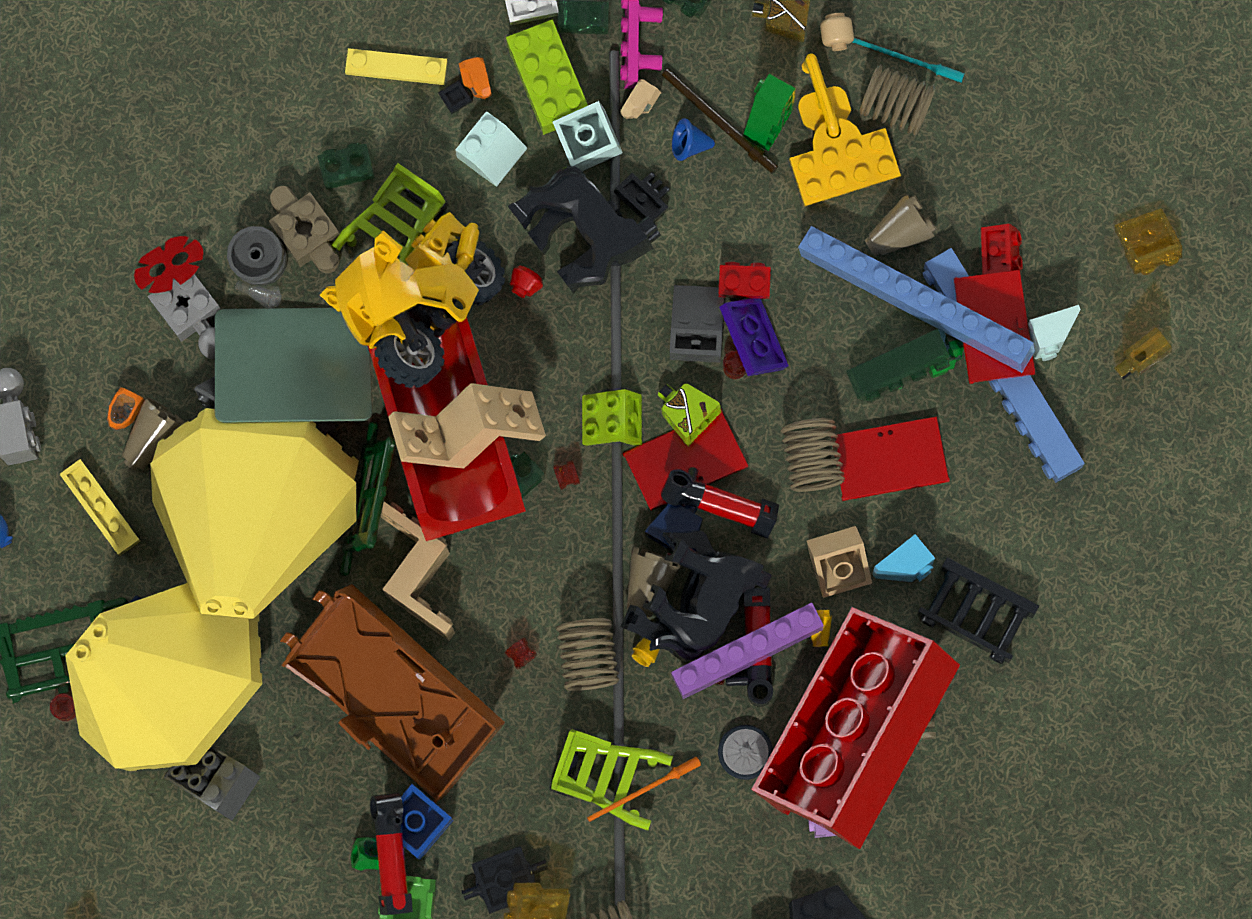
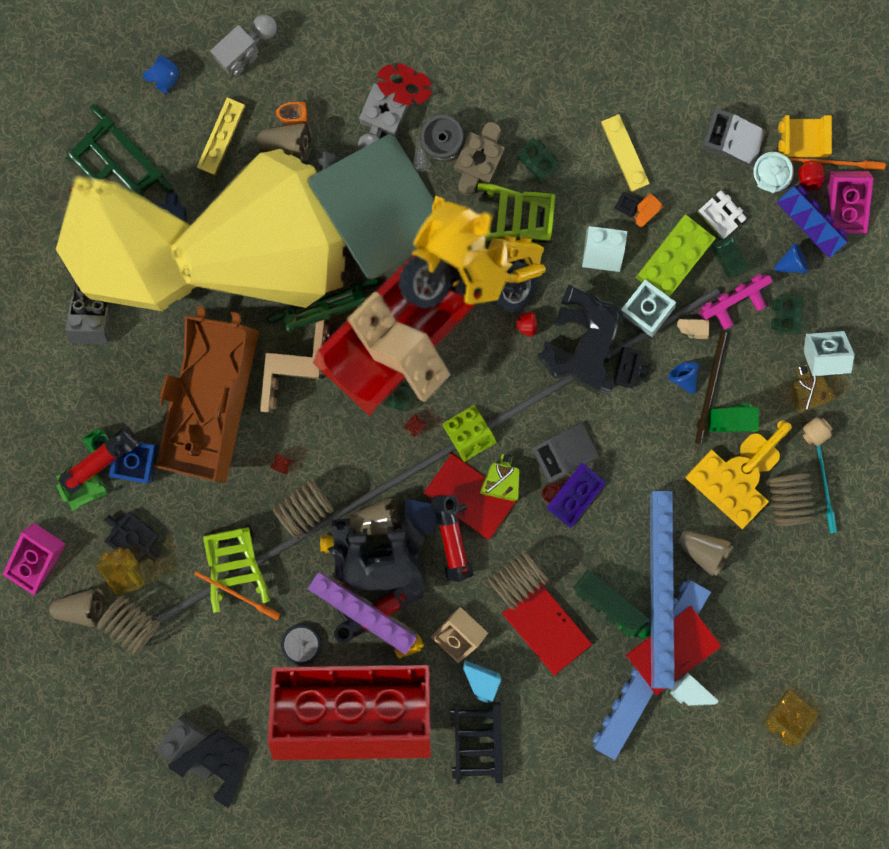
camera: 55 degrees right, 10 degrees up
(744, 281) = (610, 468): red bracket -> none
(1000, 249) = (728, 624): red bracket -> none
(1153, 346) = (718, 764): clear yellow torso -> none

